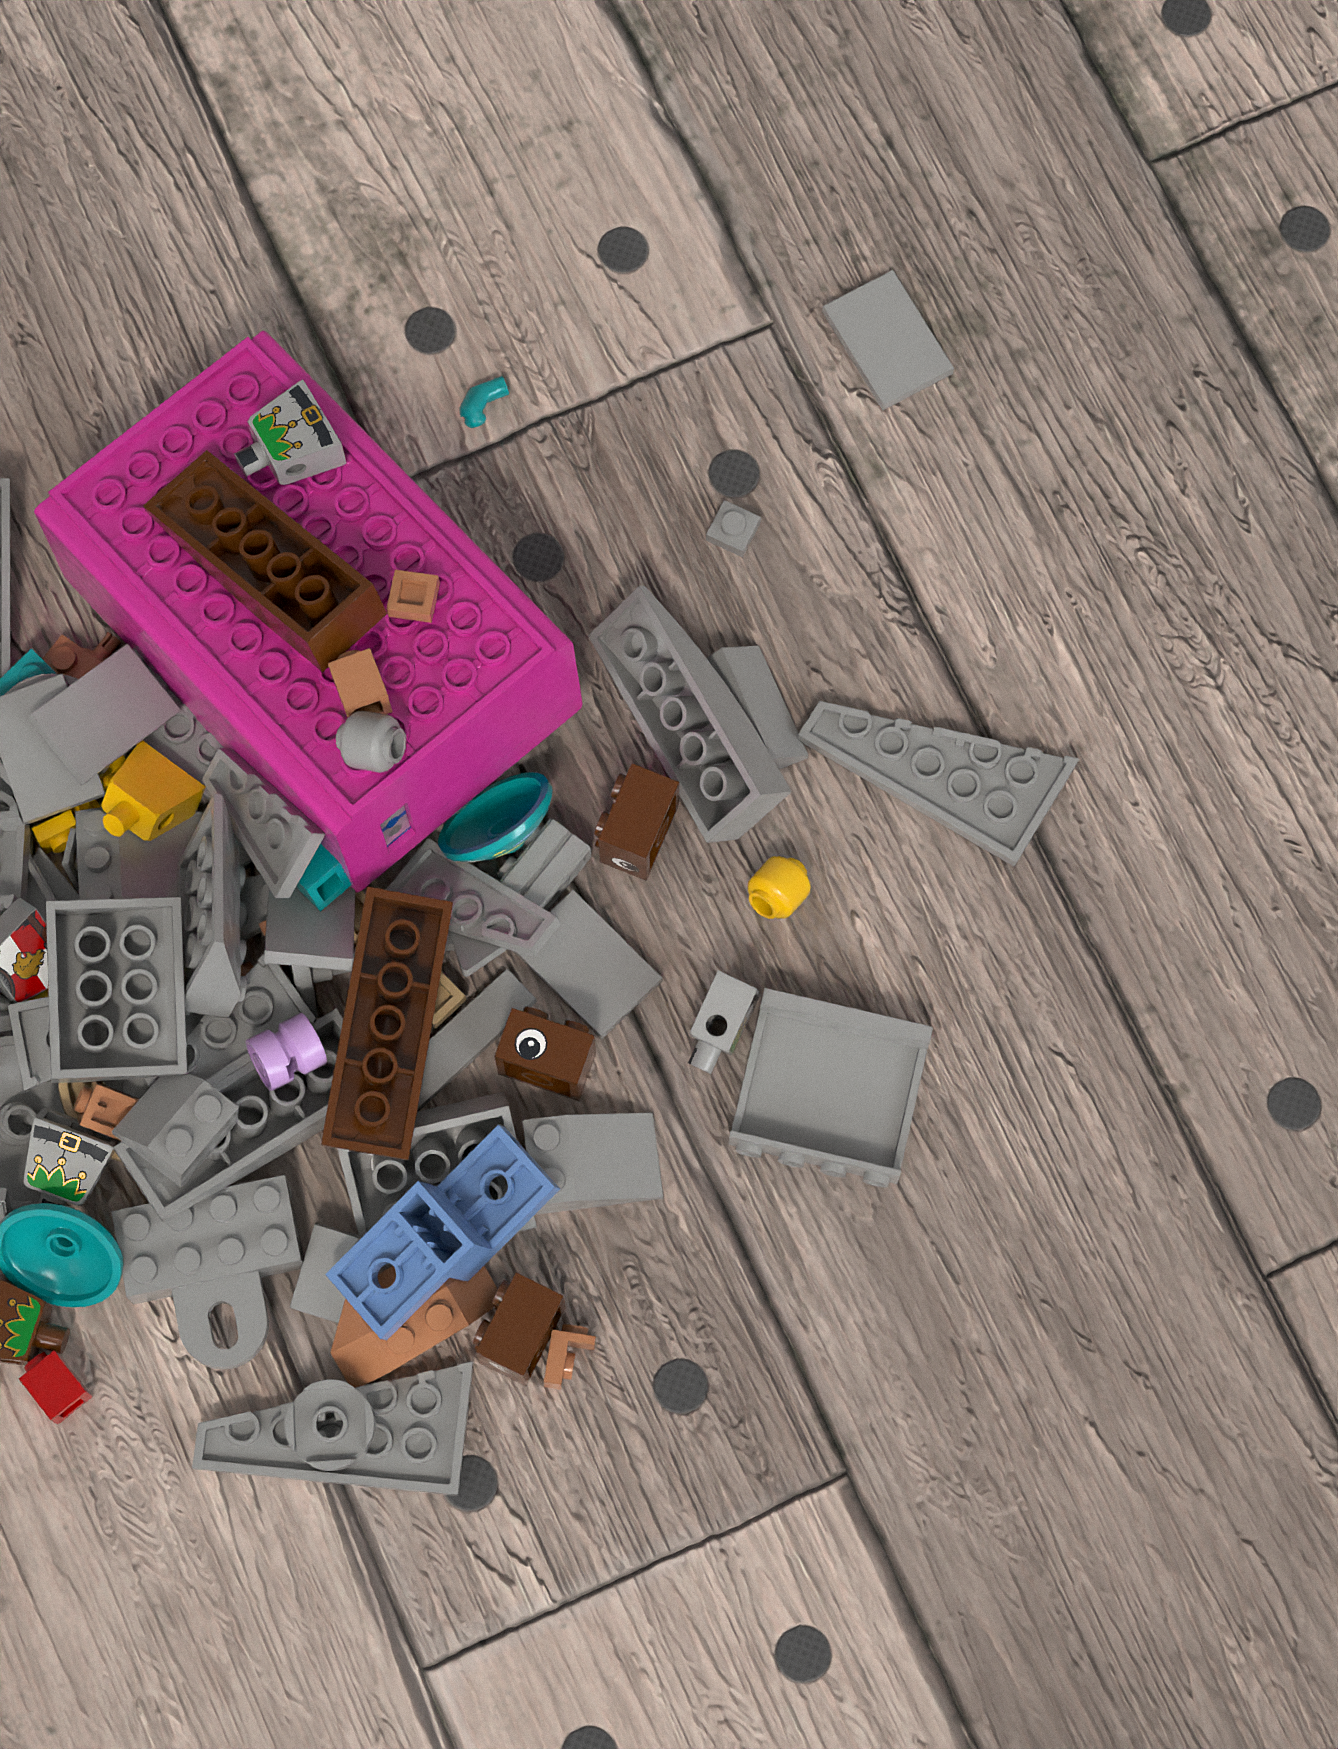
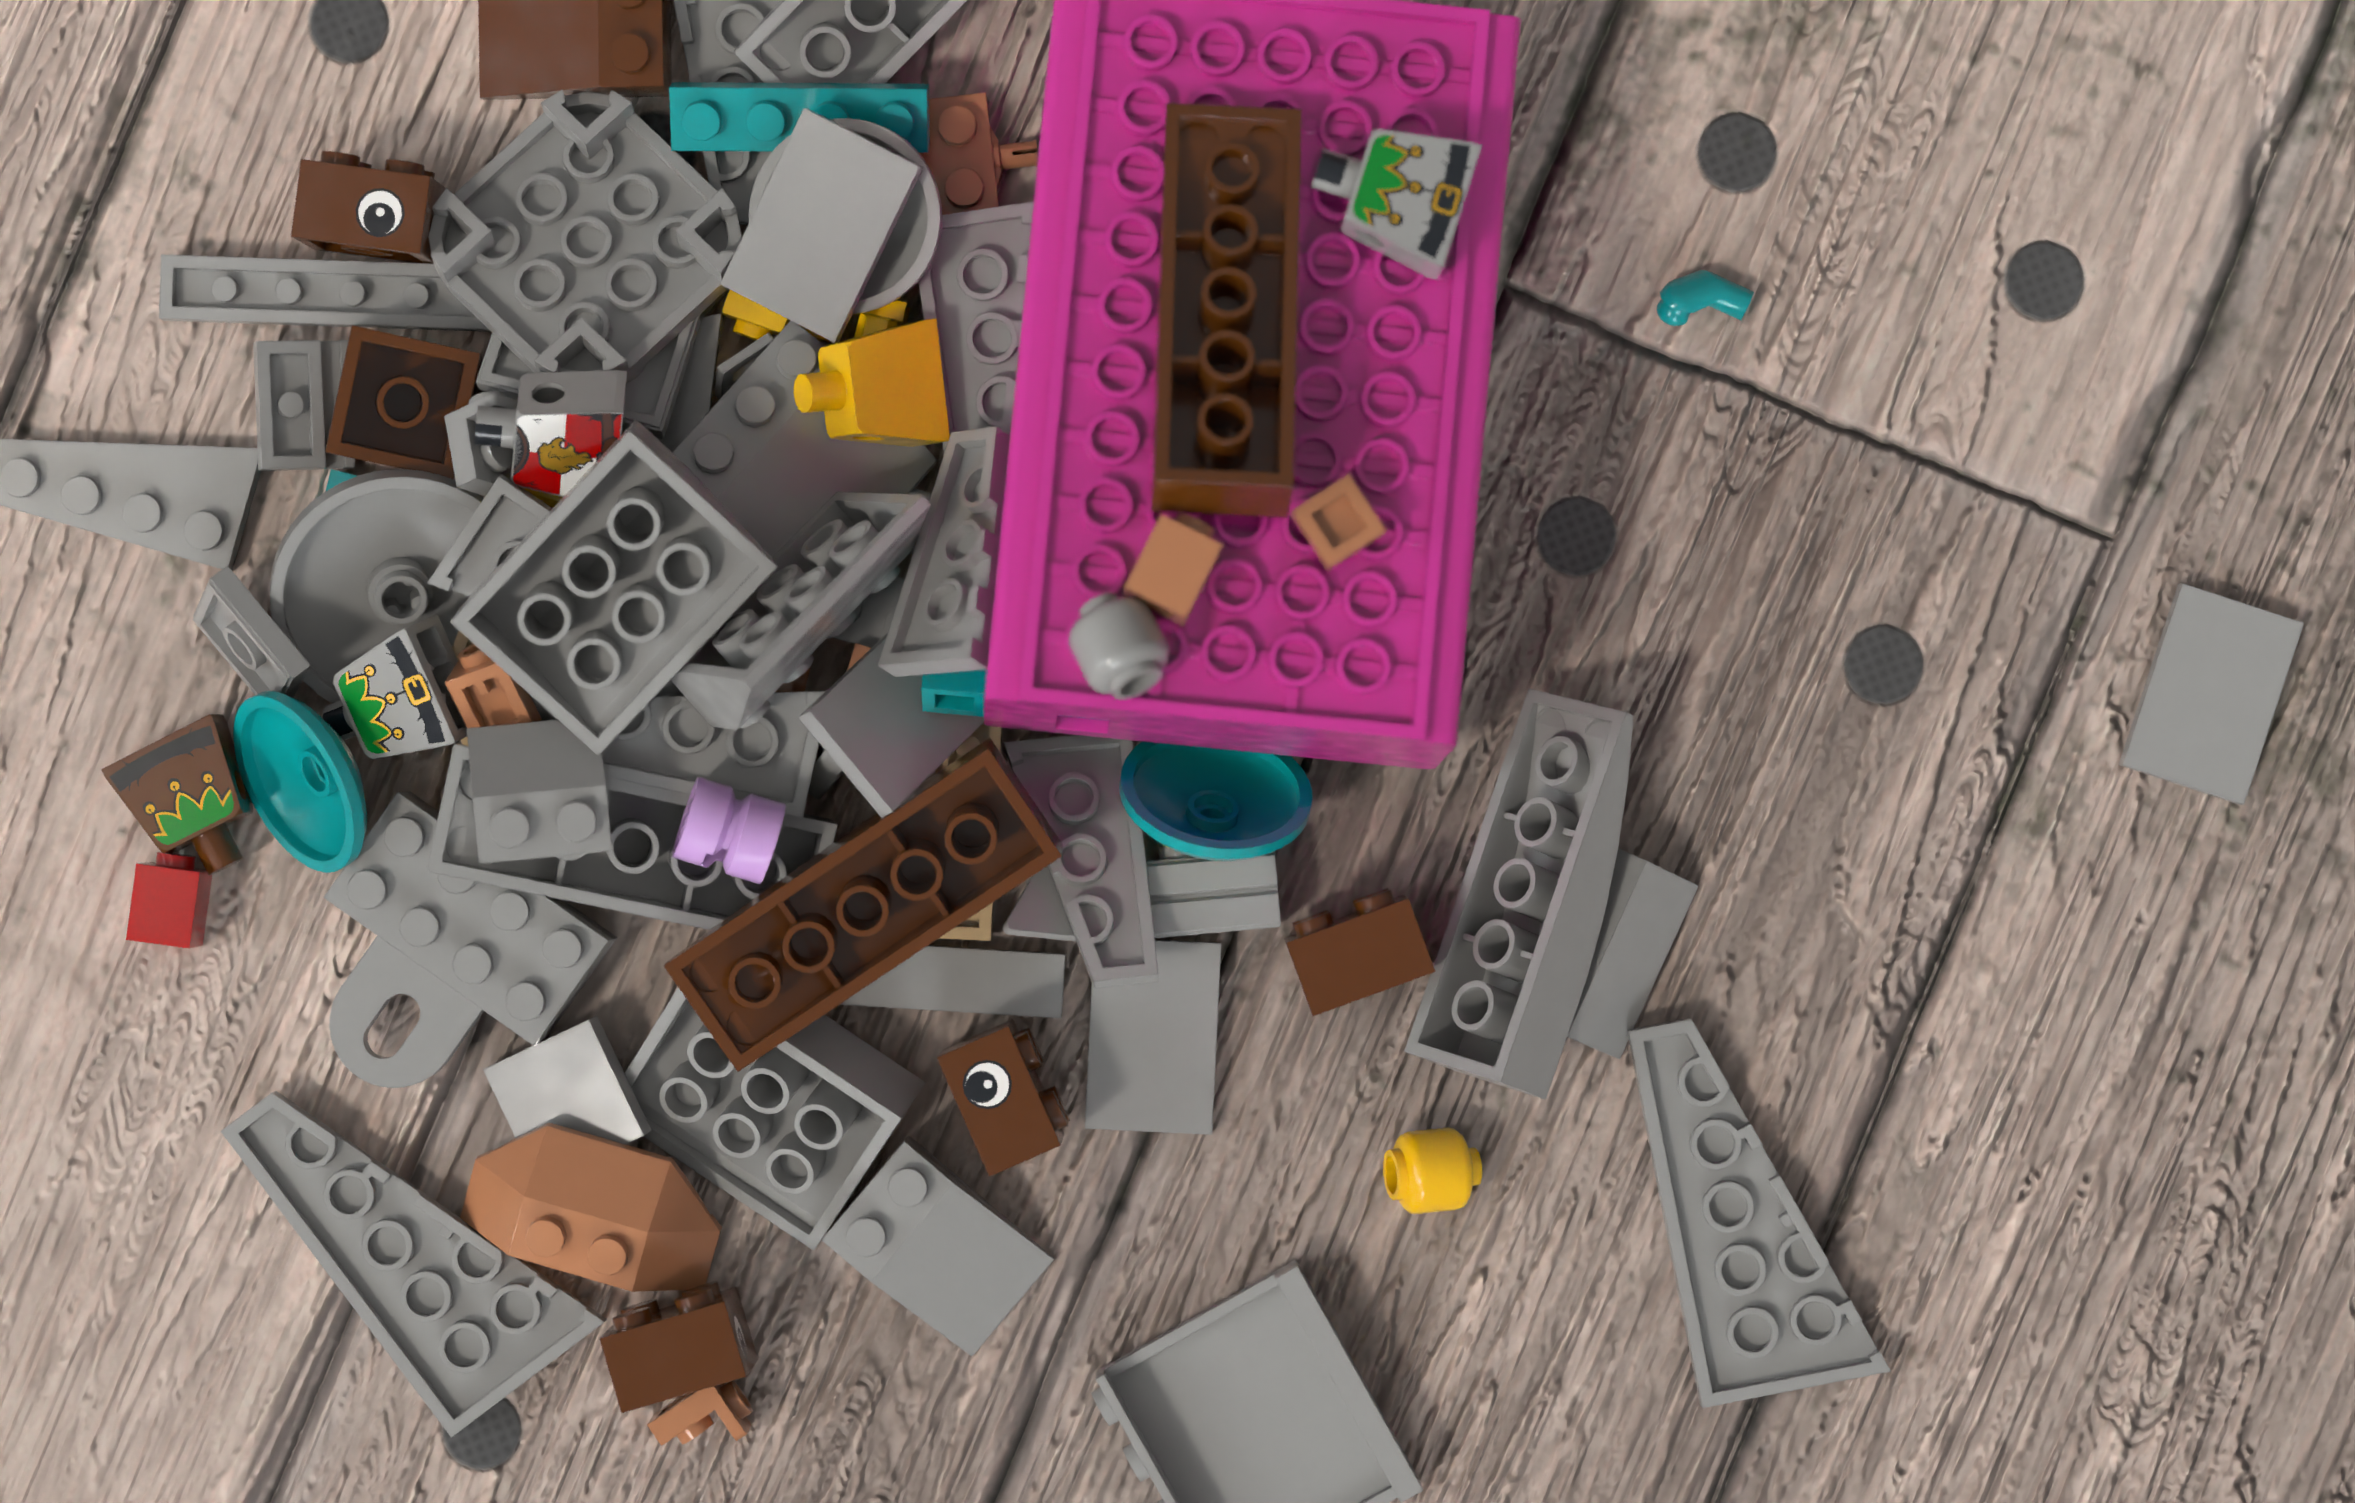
camera: 45 degrees right, 15 degrees up
(104, 714) = (919, 257): light grey tile -> none
(311, 1407) = (357, 1240): light grey plate -> none
(442, 1232) = (698, 1177): medium blue bracket -> none
(728, 1001) = (1246, 1243): light grey torso -> none
(733, 528) = (1813, 728): light grey plate -> none

